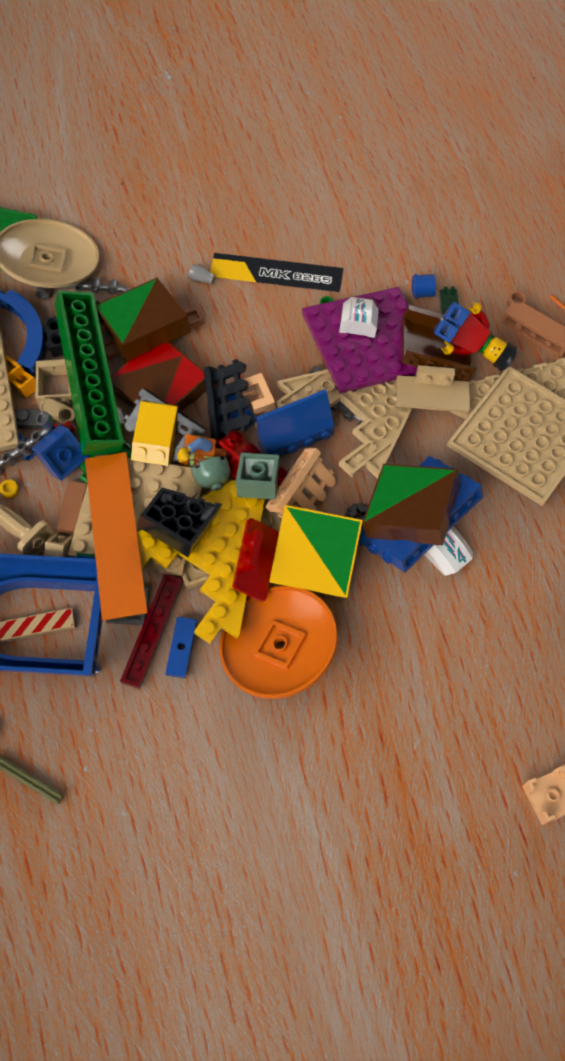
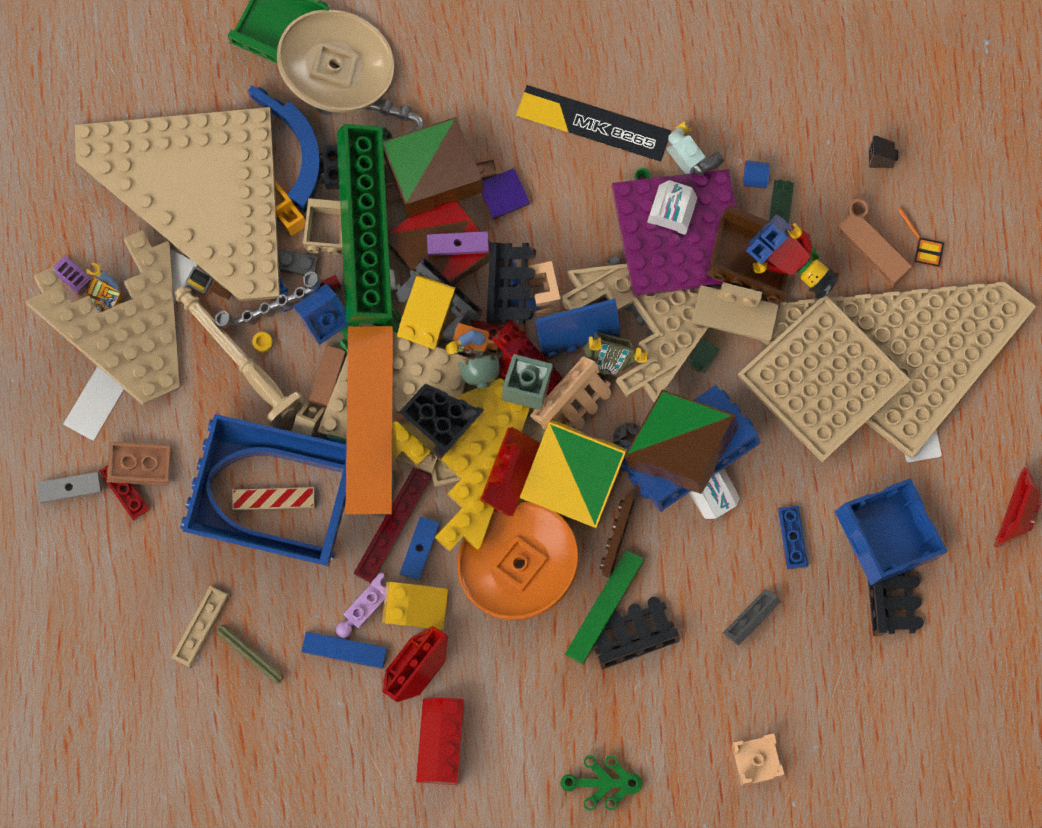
camera: 10 degrees right, 10 degrees up
(55, 408) = (320, 258): tan piece -> none
(121, 758) = (344, 650): none -> blue tile
(136, 711) = (363, 607): none -> lavender plate
(174, 373) = (470, 243): none -> medium lavender tile
(184, 701) = (414, 605): none -> yellow slope
(194, 760) = (415, 665): none -> red wedge
(200, 274) = (506, 114): light grey cone -> none
(209, 335) = (504, 194): none -> dark purple tile
(231, 834) = (440, 741): none -> red slope
(331, 443) = (612, 354): none -> torso
(364, 278) = (688, 154): none -> light aqua torso
(366, 612) = (619, 528): none -> reddish brown plate
(369, 673) = (604, 607): none -> green tile
(401, 708) = (647, 642): none -> black fence
(405, 847) = (605, 783): none -> green plant
(412, 435) = (703, 356): none -> clear green brick
(512, 657) = (751, 617): none -> dark grey plate
(525, 254) = (882, 153): none -> black slope
(534, 588) = (793, 549): none -> blue tile

